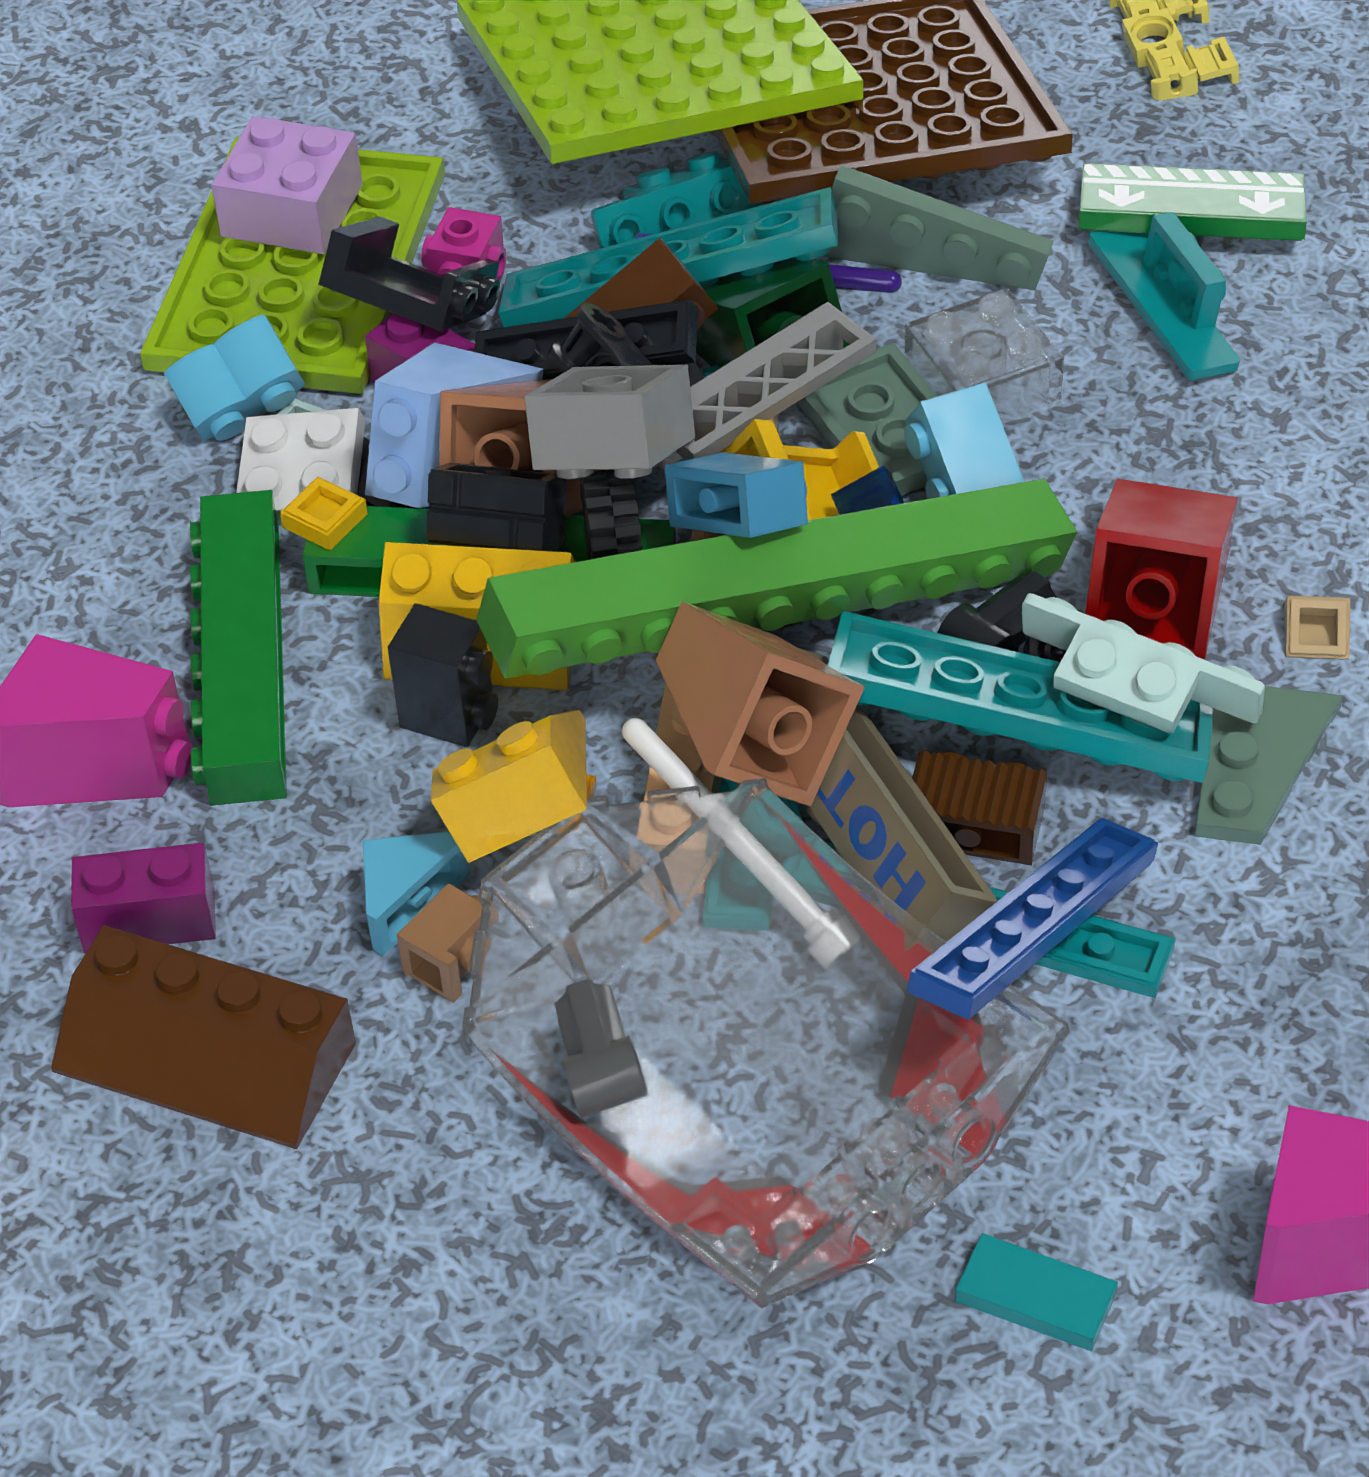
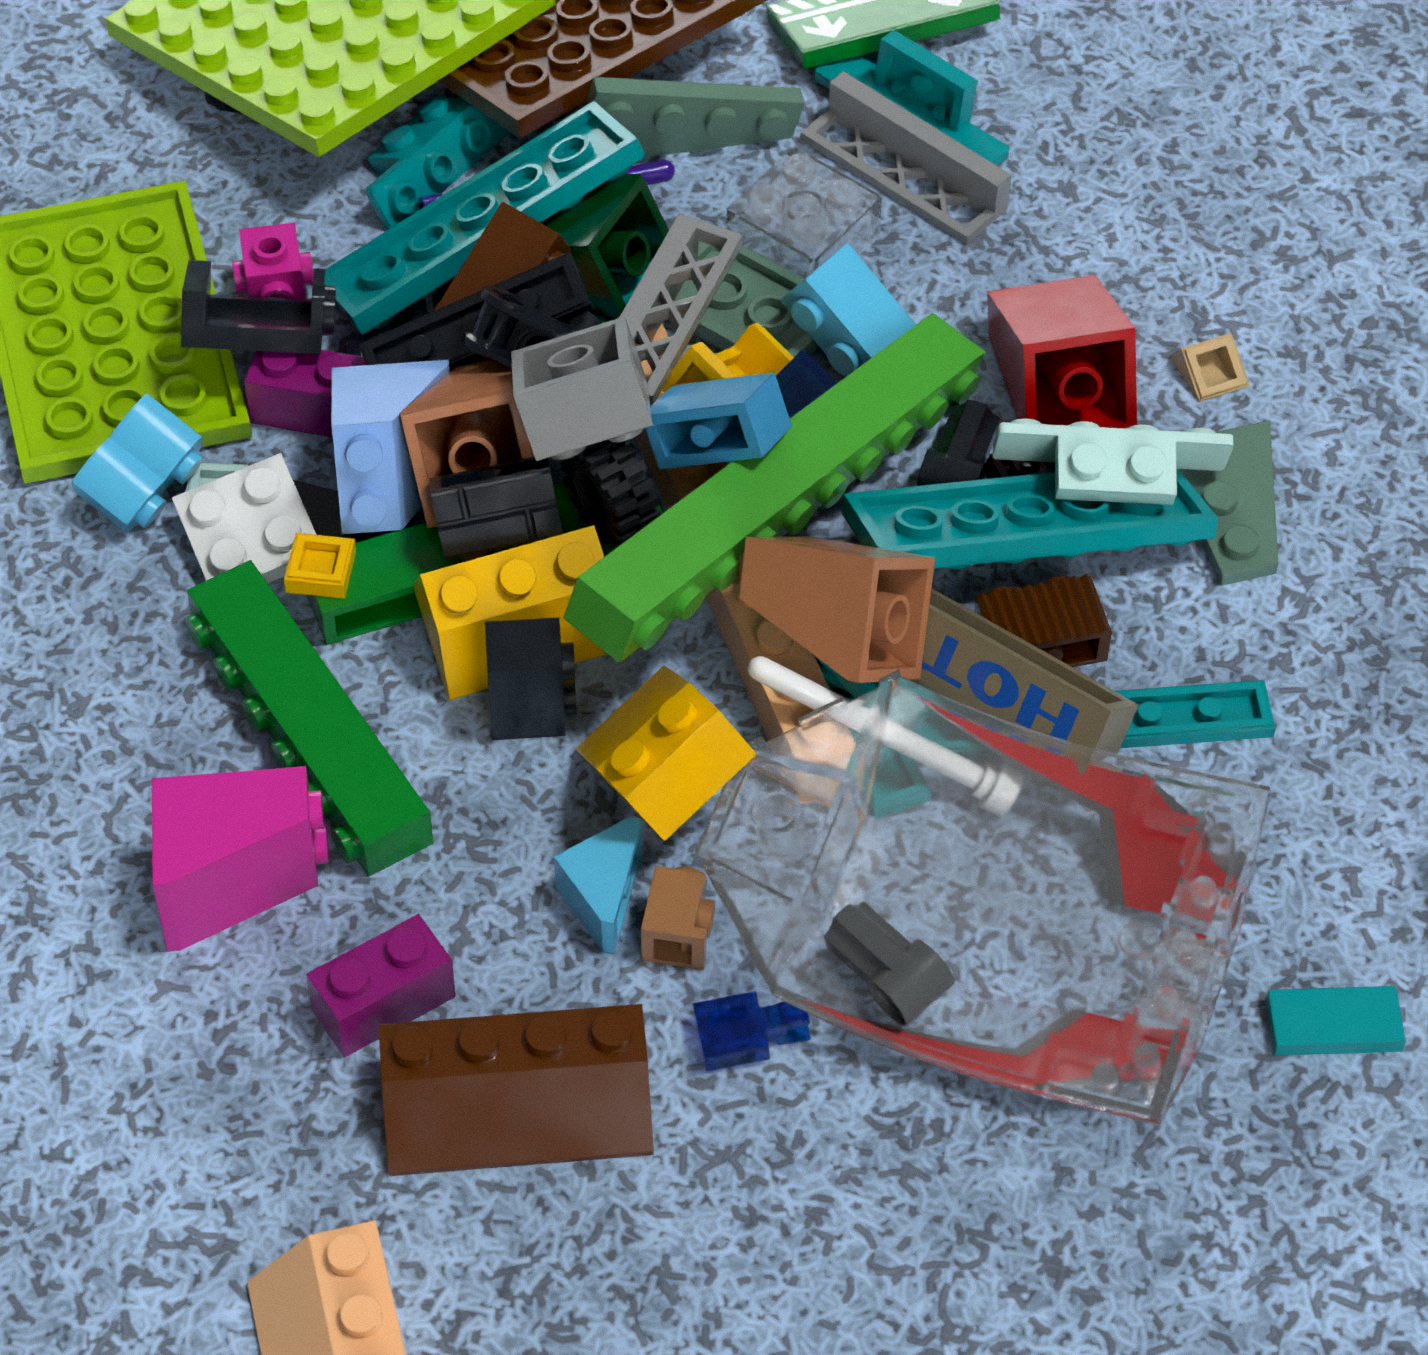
camera: 30 degrees left, 5 degrees up
(287, 184) = (68, 255): lavender brick -> none
(442, 1063) = (738, 1030): none -> clear blue plate
(1031, 918) = (1170, 708): blue tile -> none
(1146, 332) = (918, 146): none -> light grey fence

